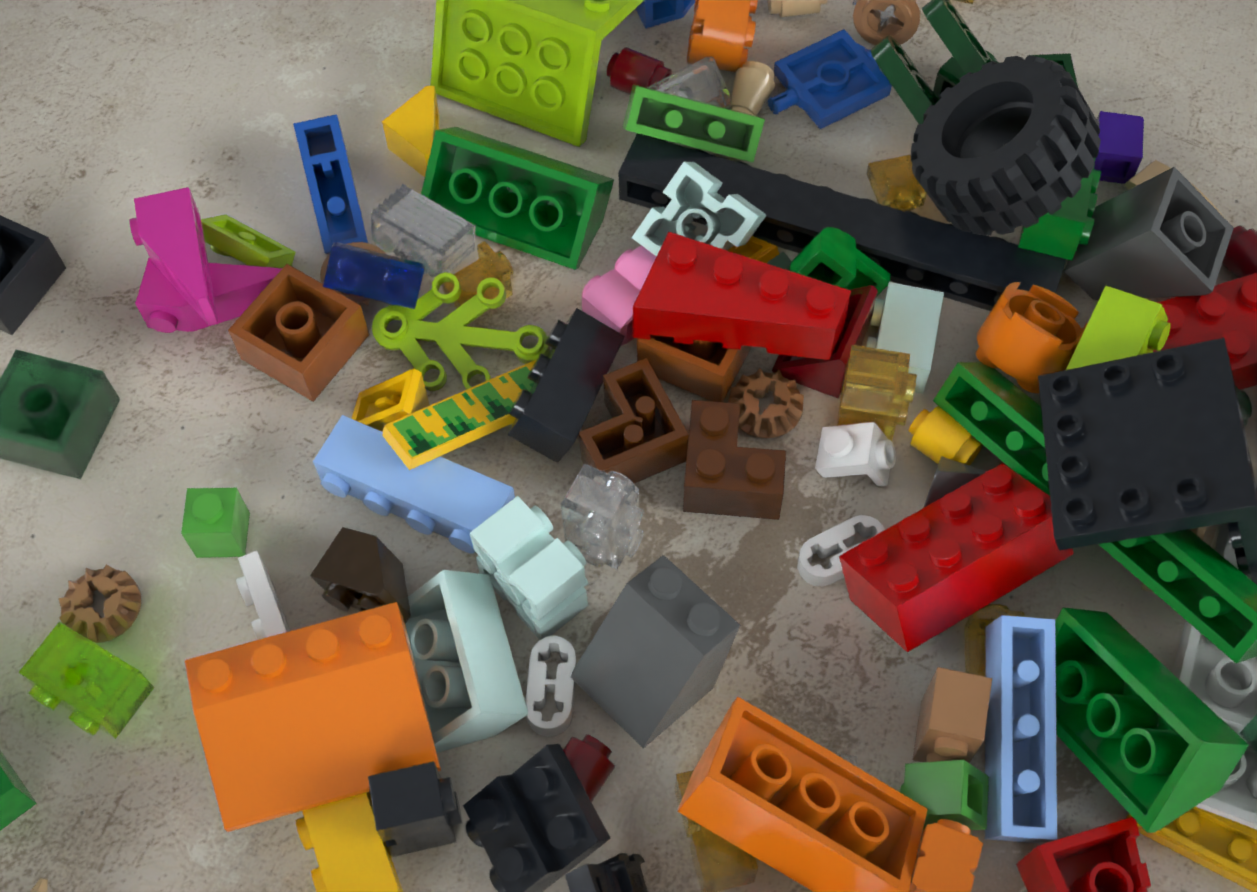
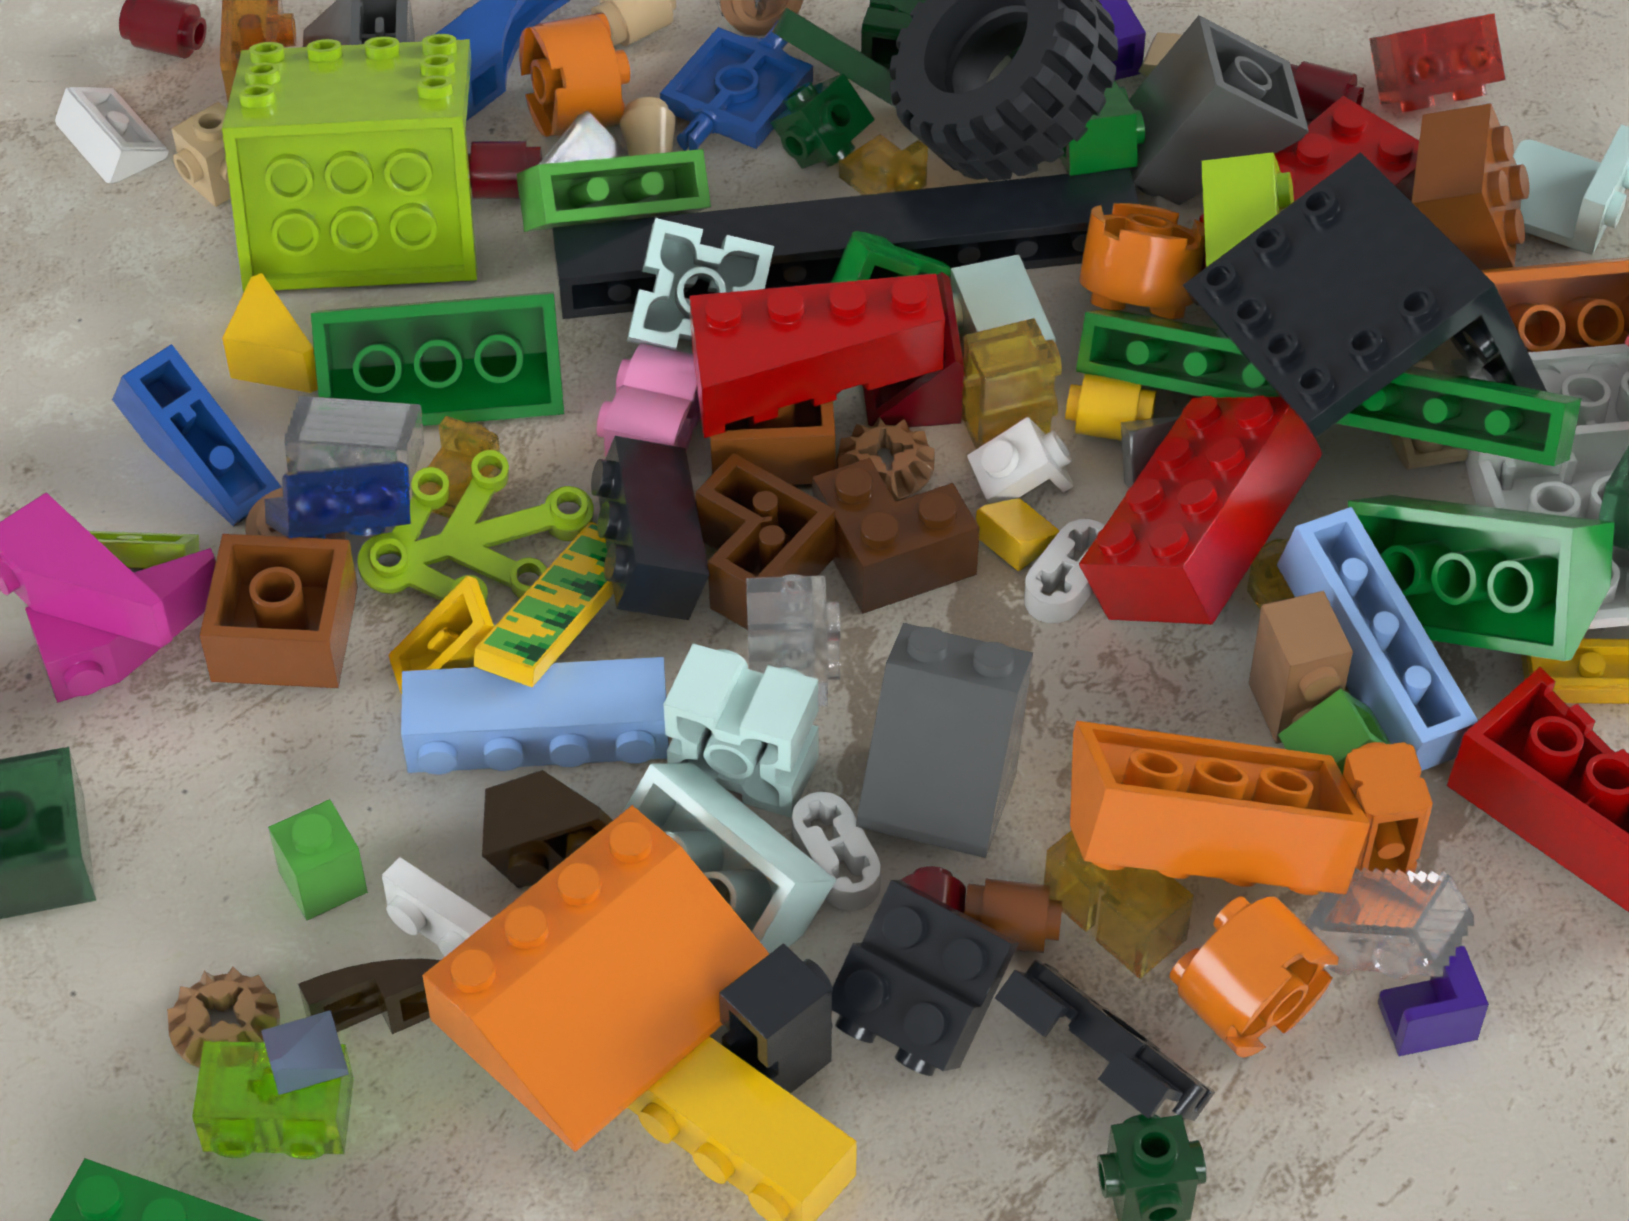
camera: 30 degrees left, 10 degrees down
(104, 664) = (304, 1052): none -> sand blue slope
(176, 631) = (371, 989): none -> dark brown slope
(634, 803) = (1017, 911): none -> dark orange brick
(823, 501) = (1014, 531): none -> yellow slope
(870, 129) = (822, 121): none -> dark green brick

